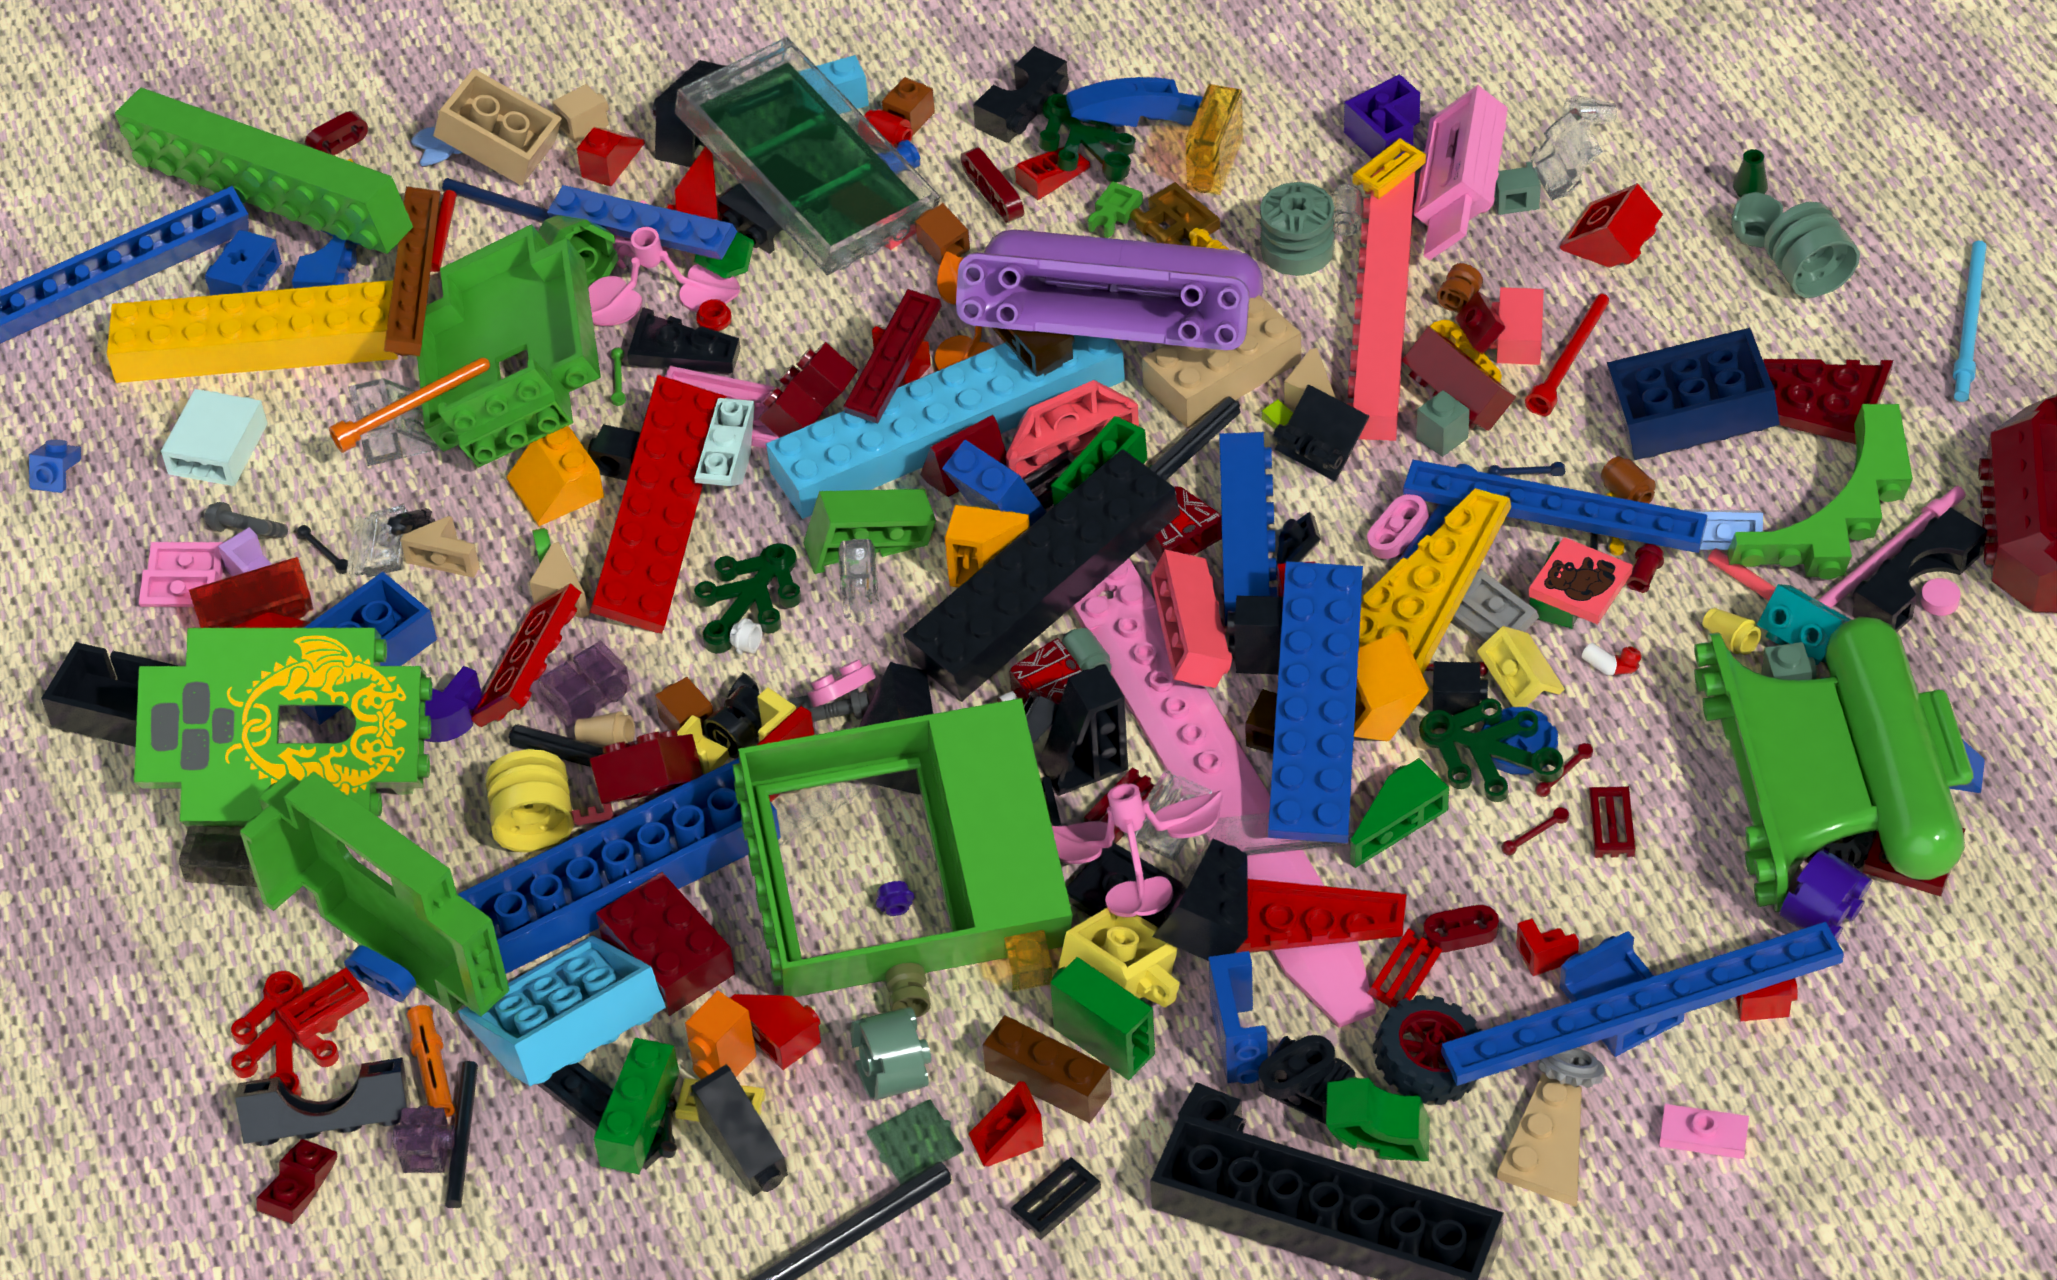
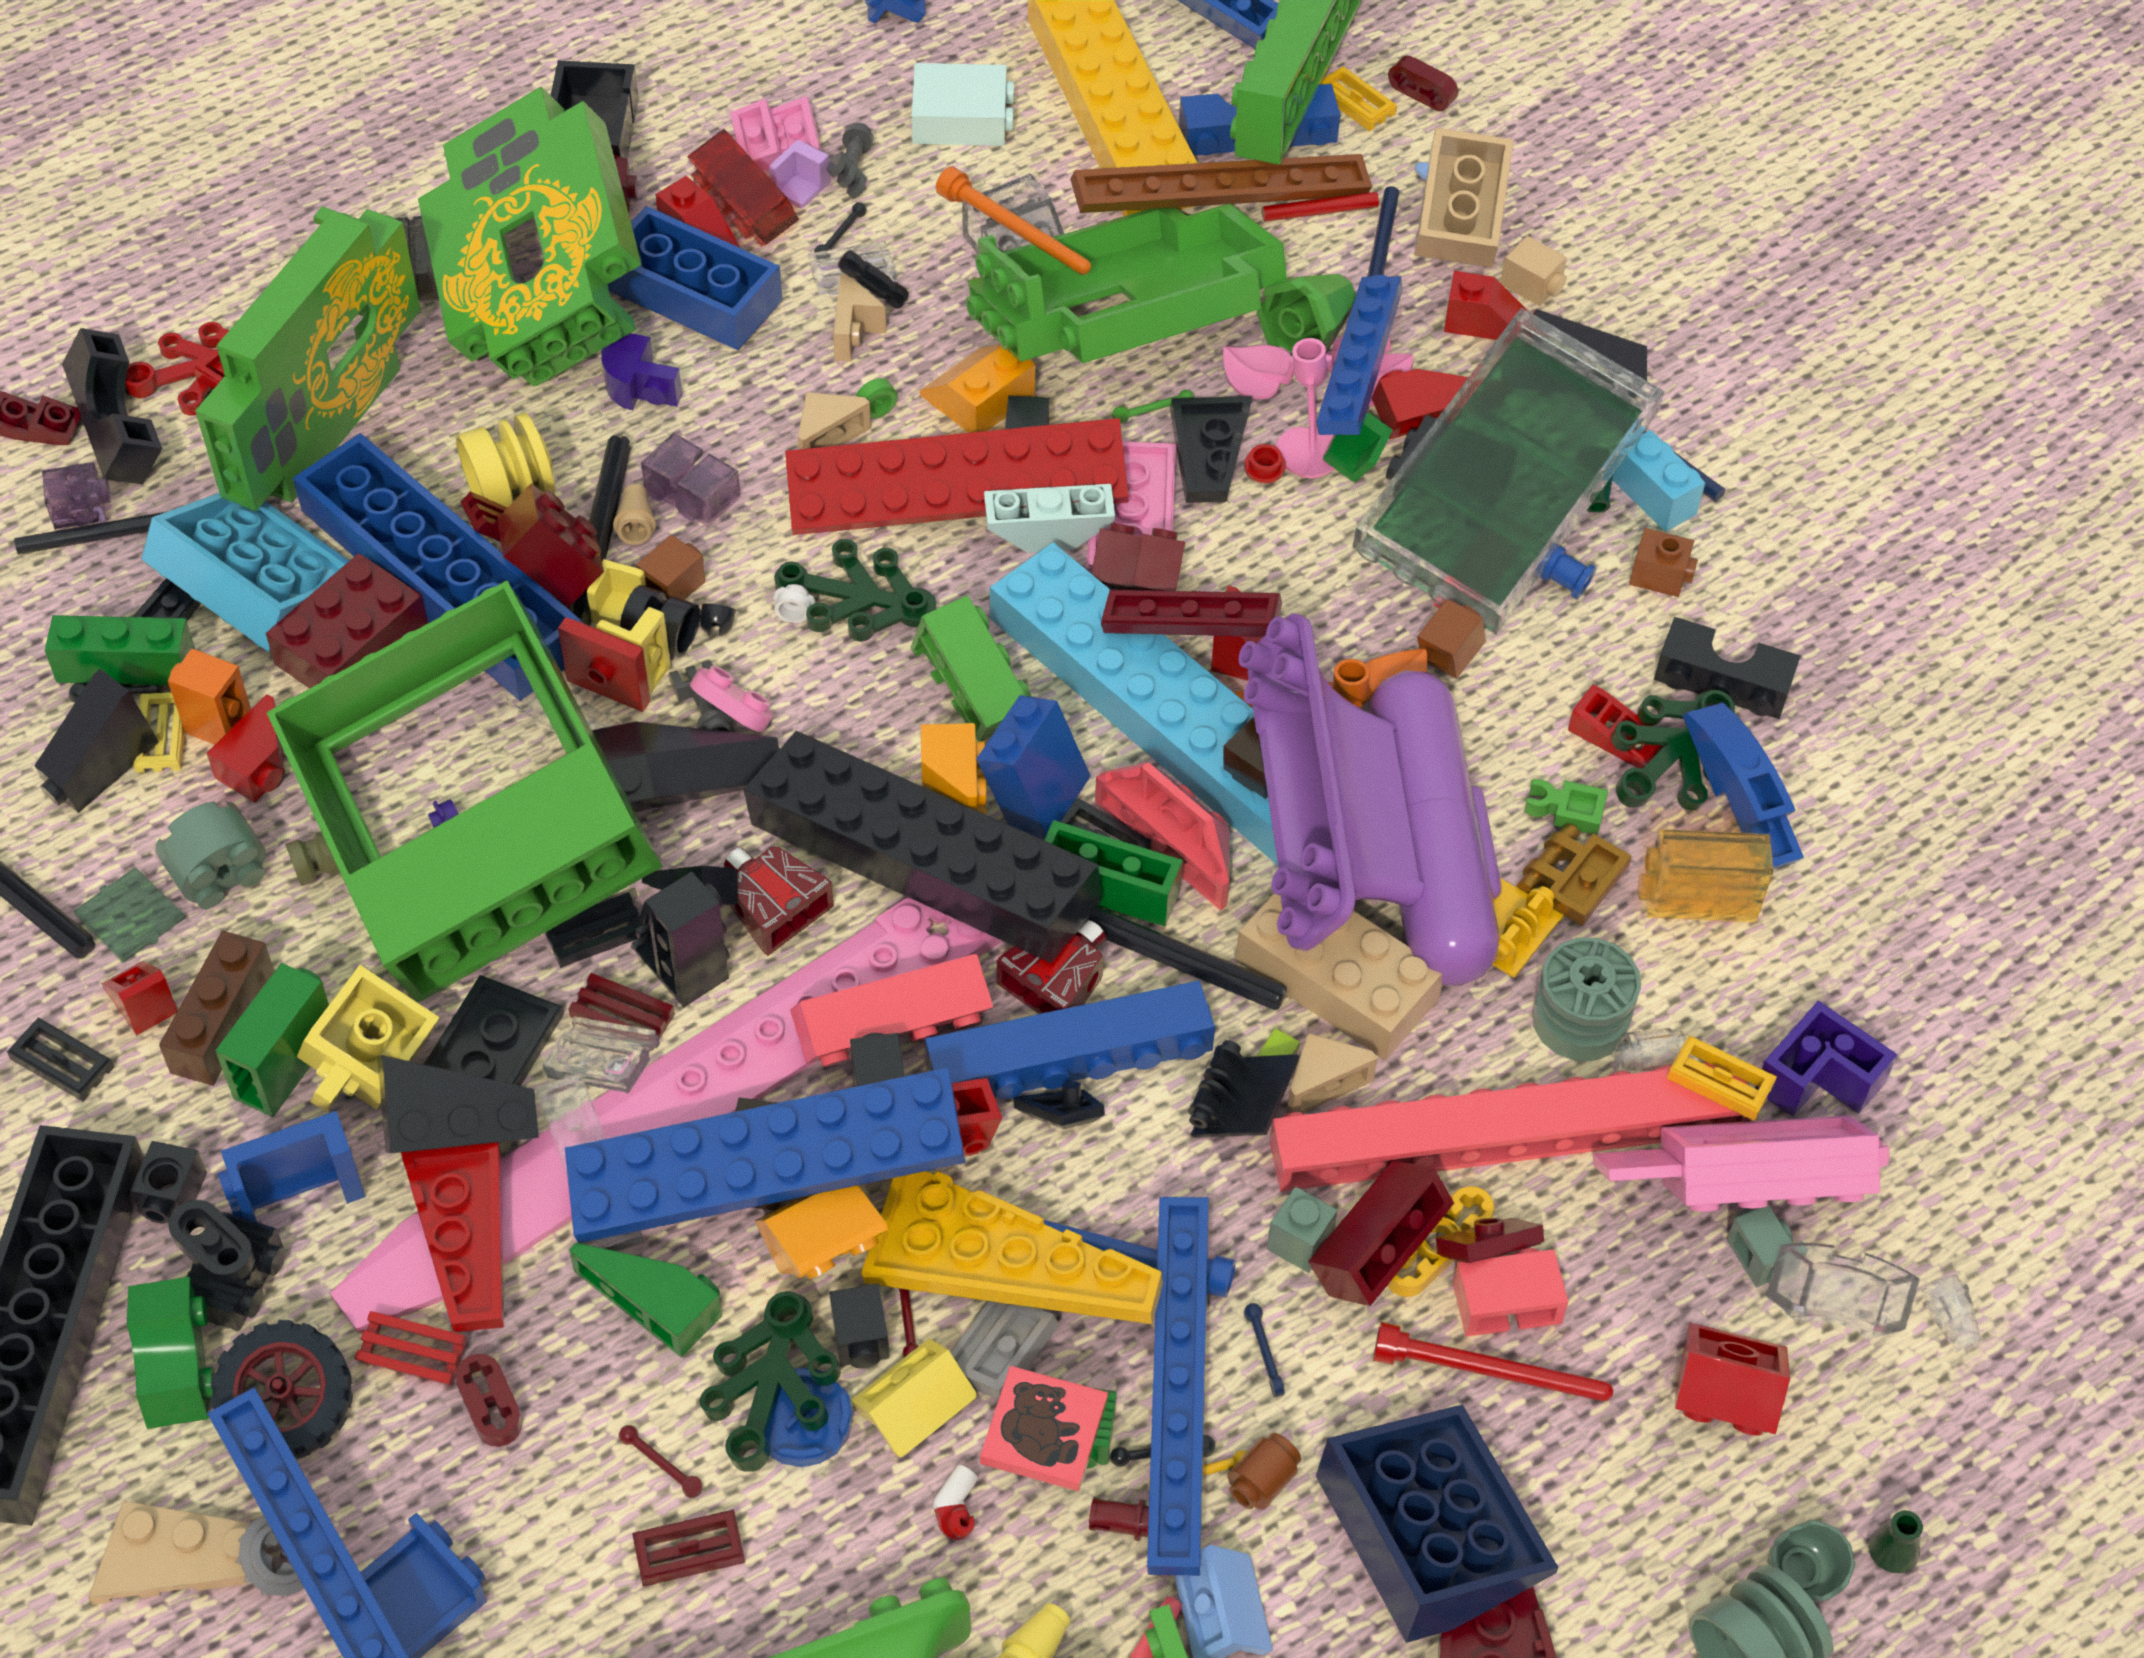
camera: 70 degrees right, 5 degrees up
(244, 264) = (1200, 62): blue brick -> none
(423, 1026) = (168, 487): orange pin -> none
(526, 655) = (693, 418): red plate -> none
(859, 581) = (875, 675): clear brick -> none
(890, 126) = (1616, 550): red brick -> none
(982, 434) = (1100, 737): dark red slope -> none
(992, 184) = (1562, 673): dark red beam -> none
(1028, 960) = (354, 947): clear yellow brick -> none
(1086, 649) = (829, 922): sand green brick -> none
(1086, 840) = (534, 977): bright pink plant -> none
(1395, 527) = (1117, 1211): bright pink plate -> none
(1459, 287) = (1546, 1205): dark orange wheel -> none
(1544, 950) = (468, 1497): red panel -> none
(1584, 751) = (801, 1497): dark red hinge -> none

